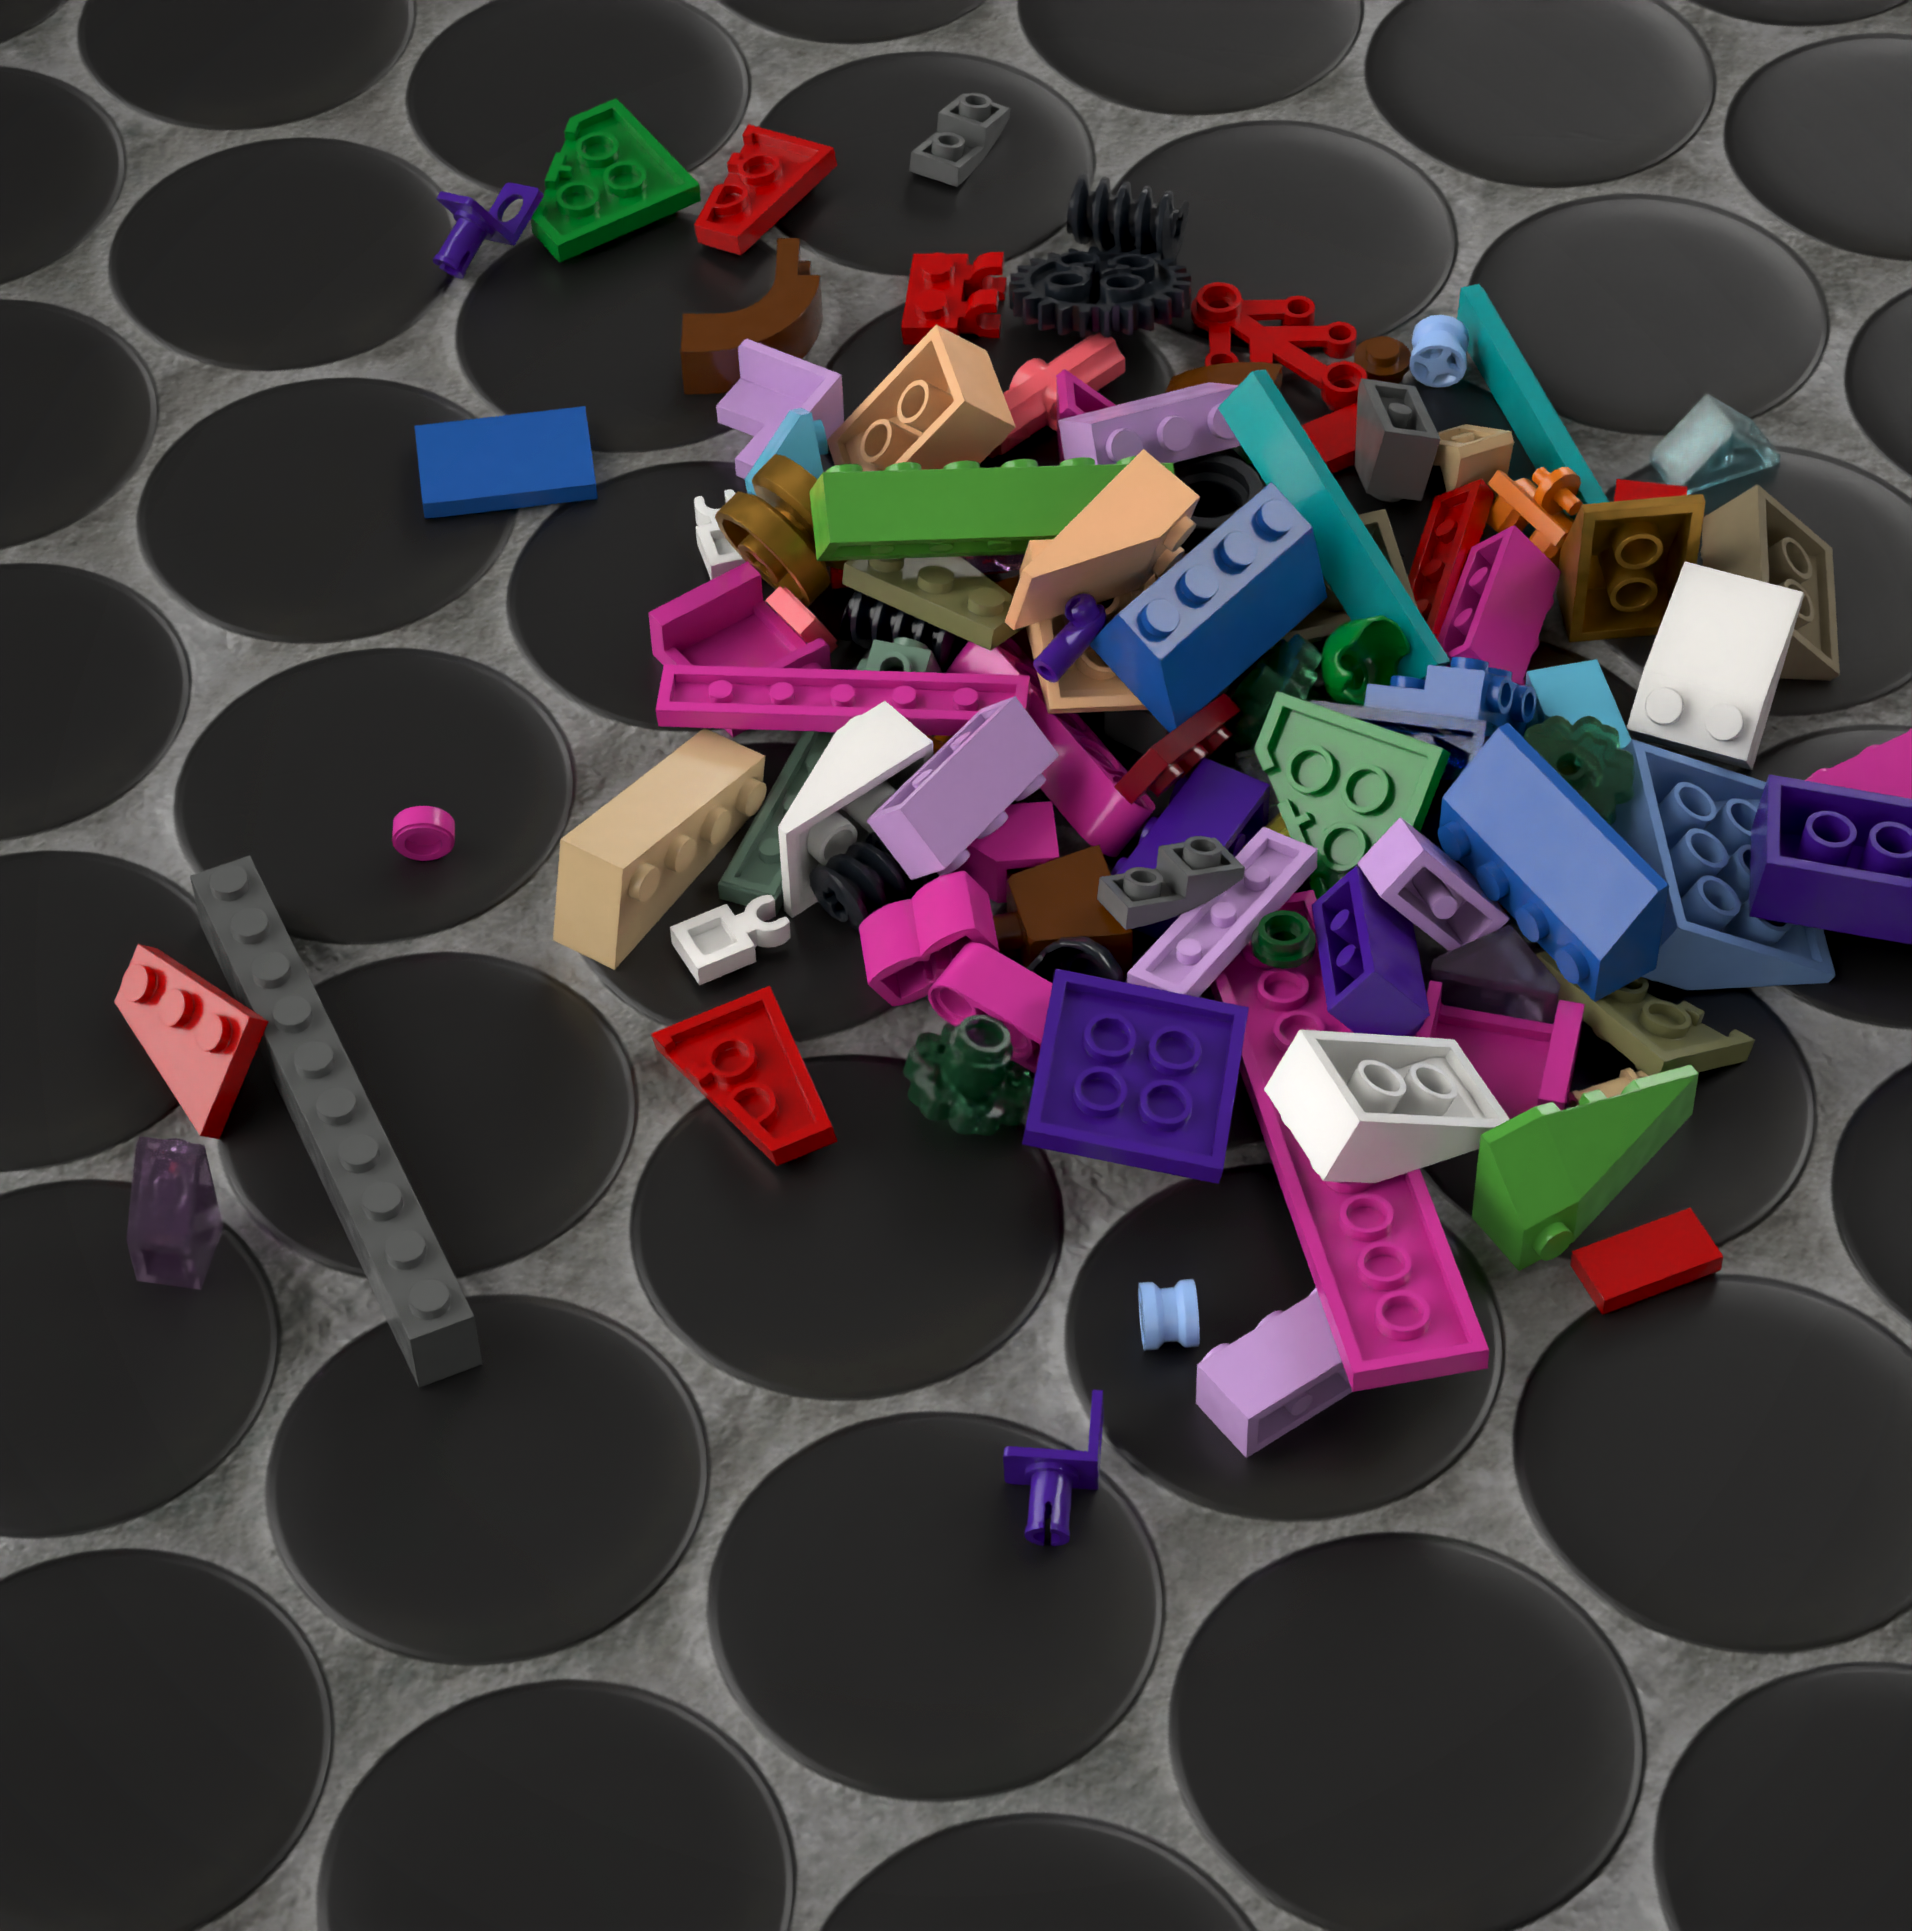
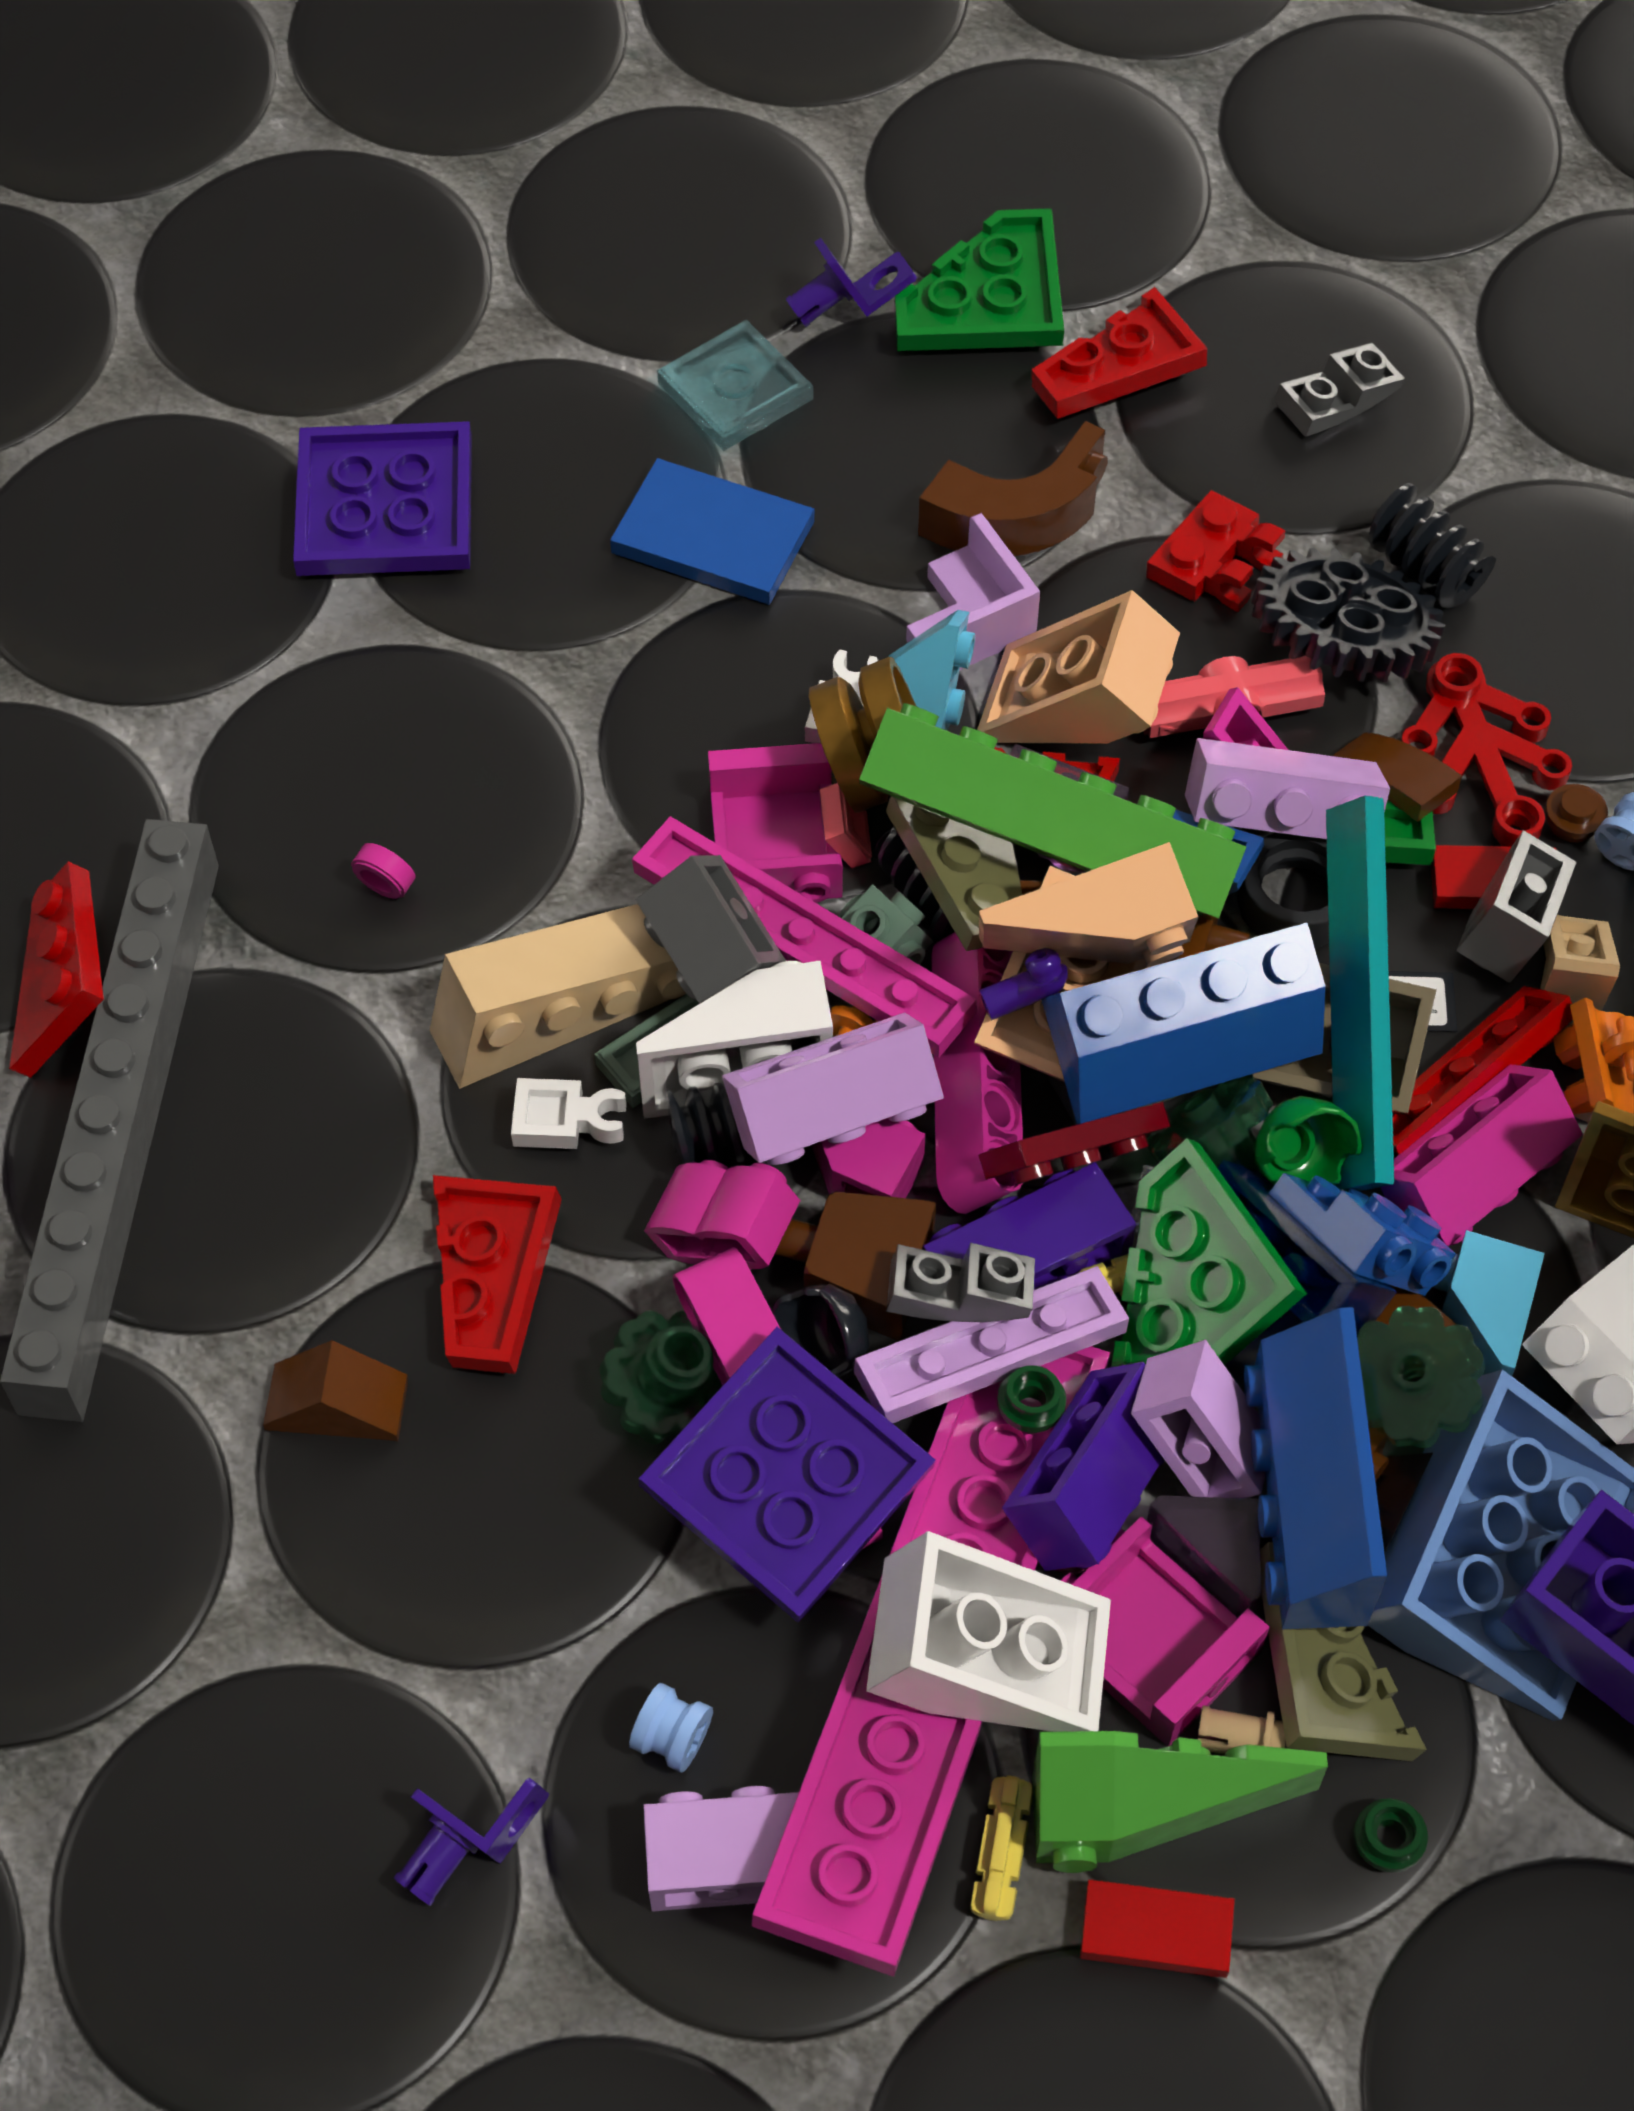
camera: 30 degrees right, 10 degrees up
(188, 558) = (383, 498): none -> dark purple plate
(435, 346) = (735, 385): none -> clear light blue tile
(691, 1230) = (336, 1394): none -> reddish brown slope
(767, 724) = (707, 926): none -> dark grey brick
(1489, 1267) = (1002, 1848): none -> light yellow axle
(1771, 1108) = (1405, 1821): none -> dark green plate

